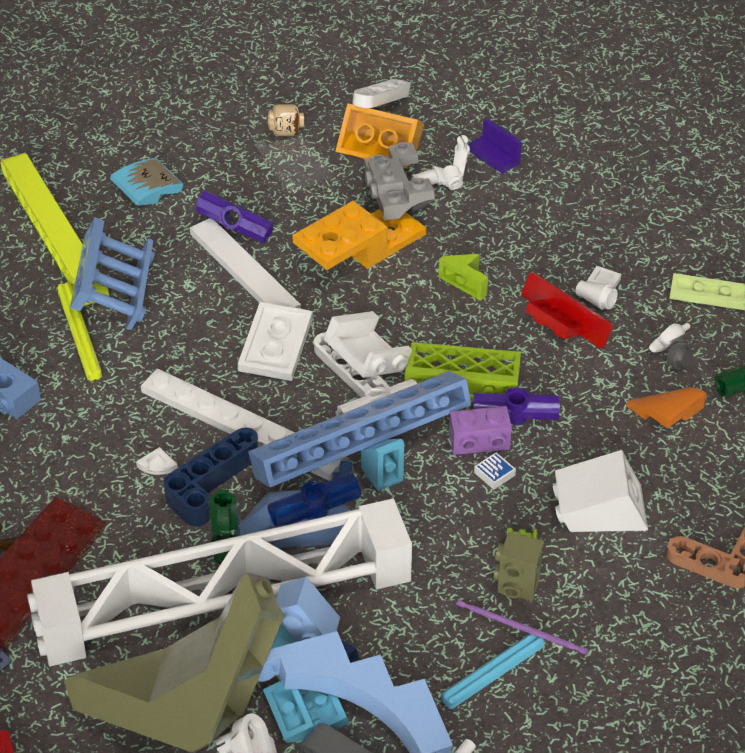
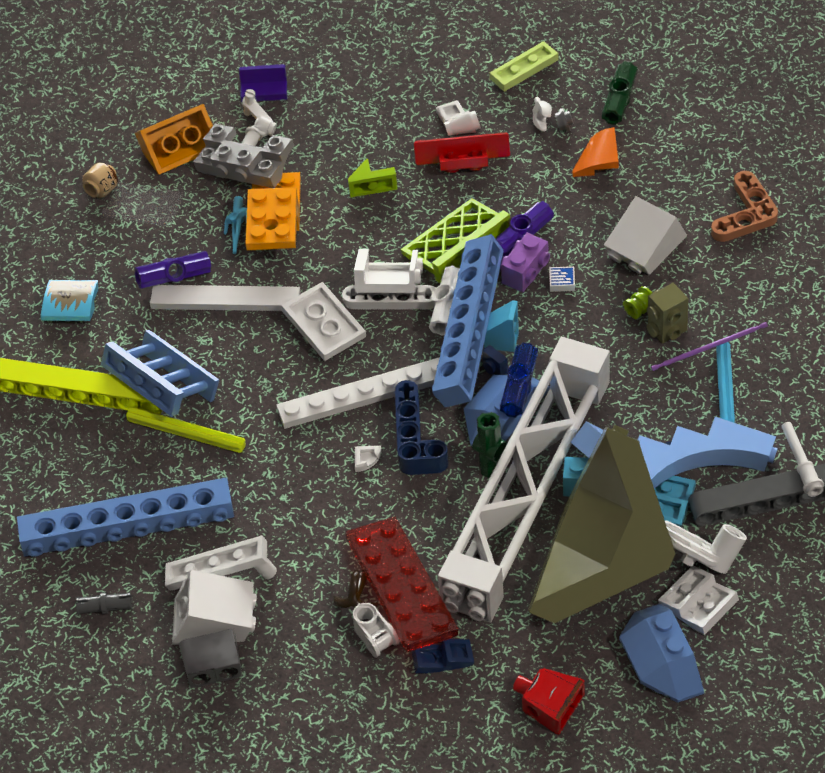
camera: 45 degrees left, 5 degrees up
(381, 93) = (142, 108): white beam -> none

